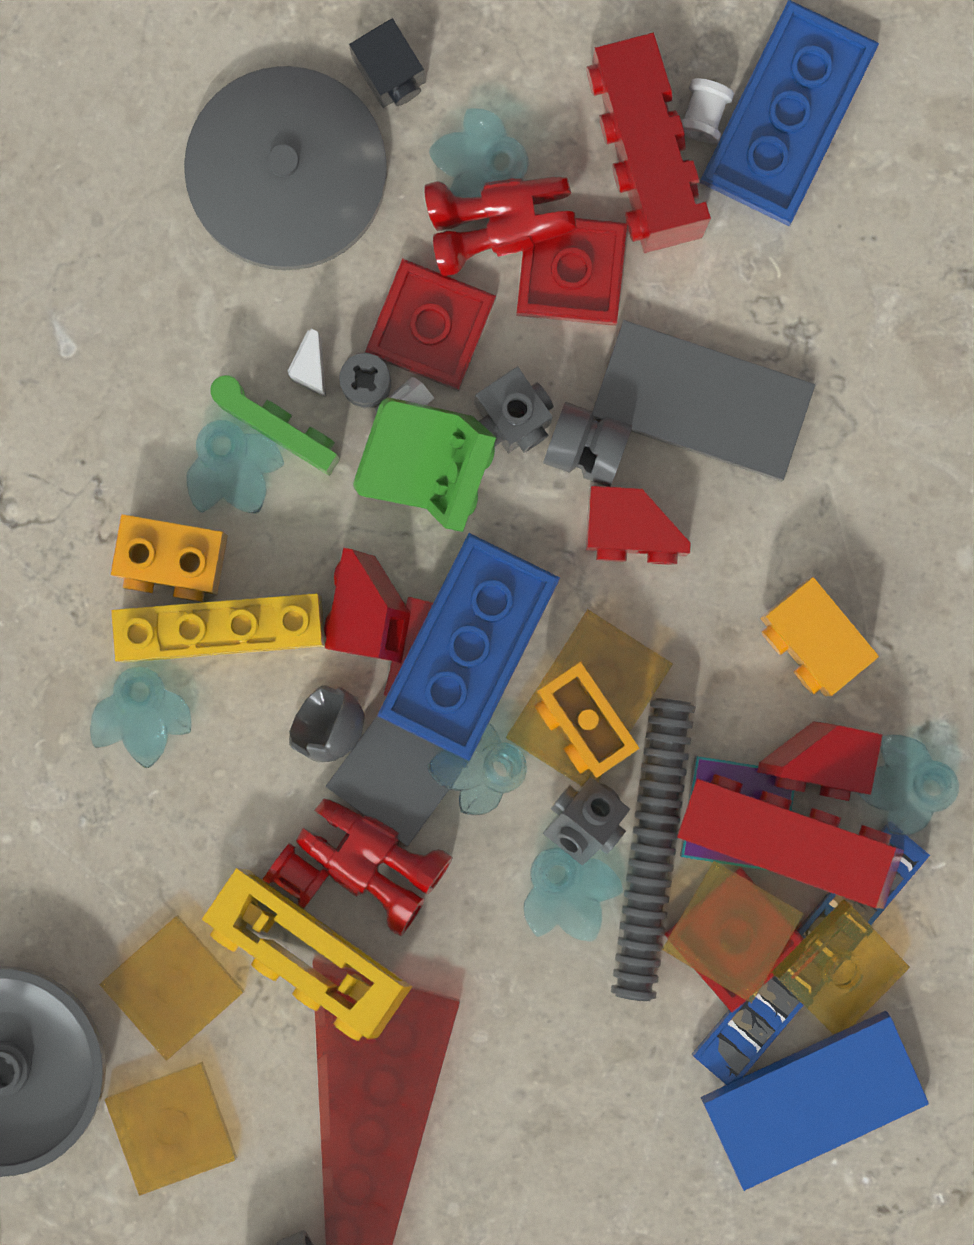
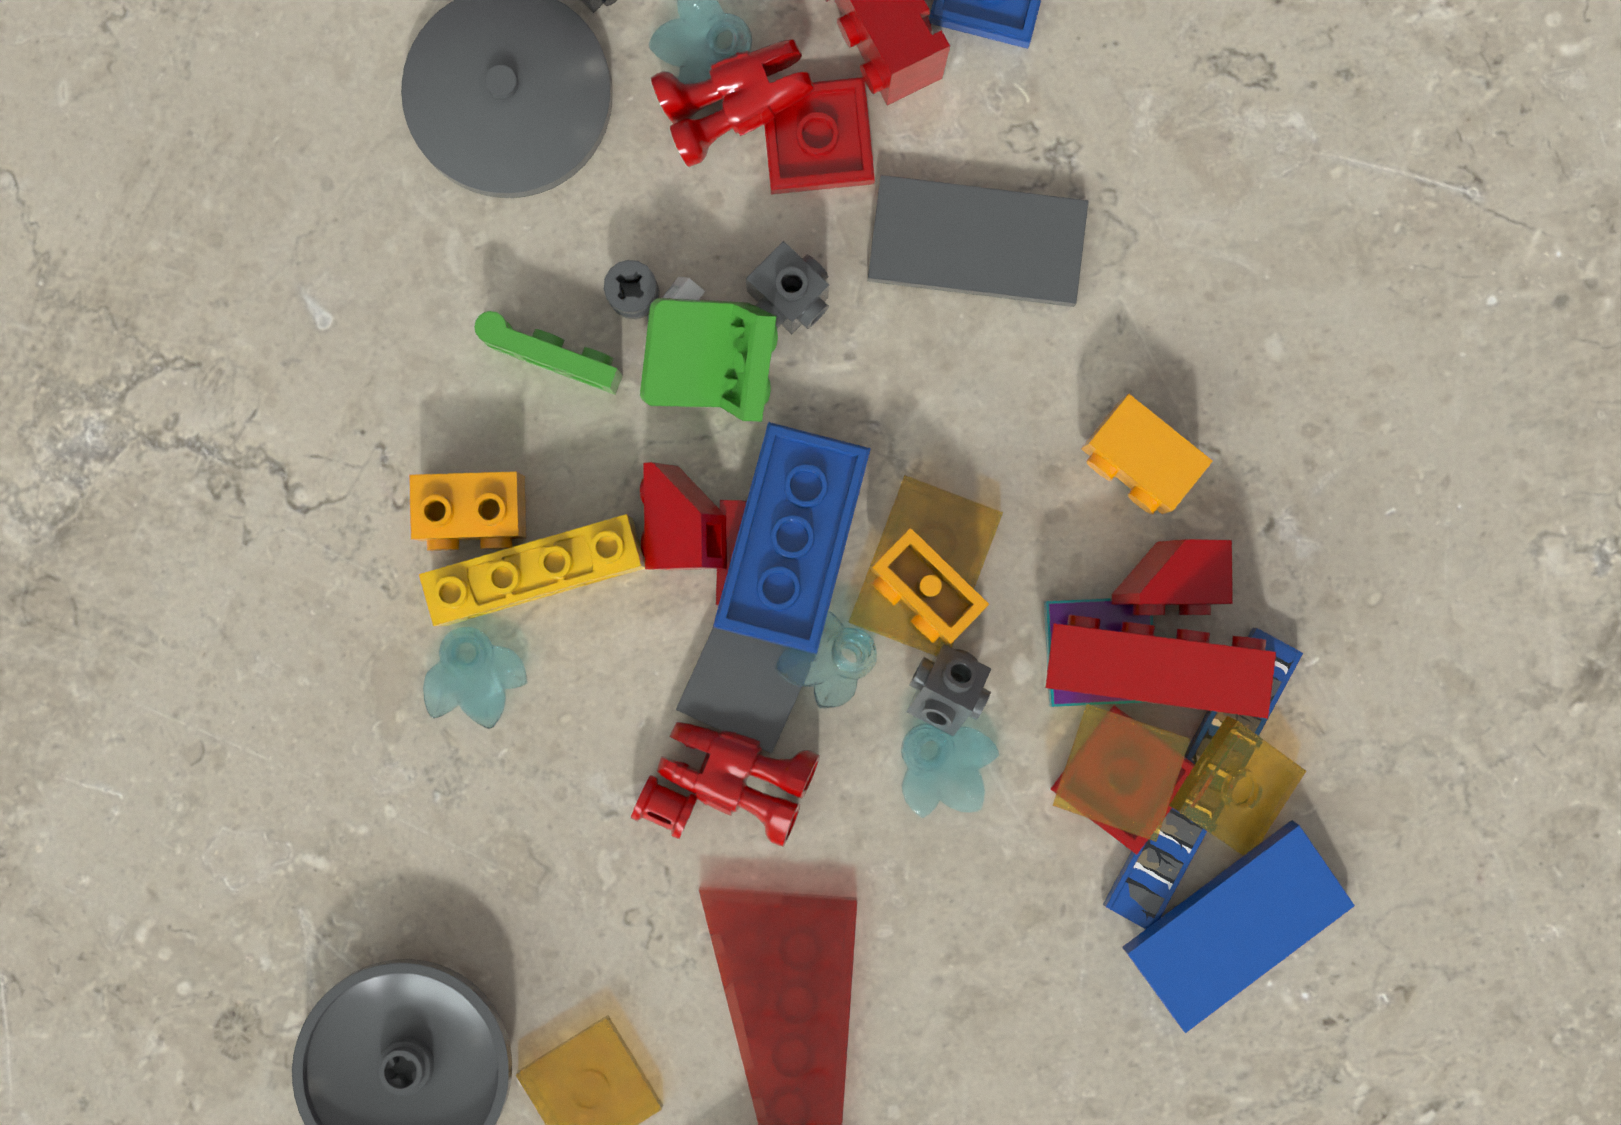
camera: 15 degrees left, 0 degrees up
(172, 987) = (561, 946): clear yellow tile -> none
(235, 475) = (519, 412): clear light blue plate -> none
(238, 906) = (611, 851): yellow brick -> none
(308, 365) = (569, 284): white slope -> none
(327, 724) = (664, 646): dark grey hair -> none
(430, 324) = (686, 220): red tile -> none
(587, 444) = (870, 307): dark grey wheel -> none
(631, 522) = (930, 379): red slope -> none
(652, 850) = (1021, 706): dark grey piece -> none
(901, 789) = (1260, 590): clear light blue plate -> none

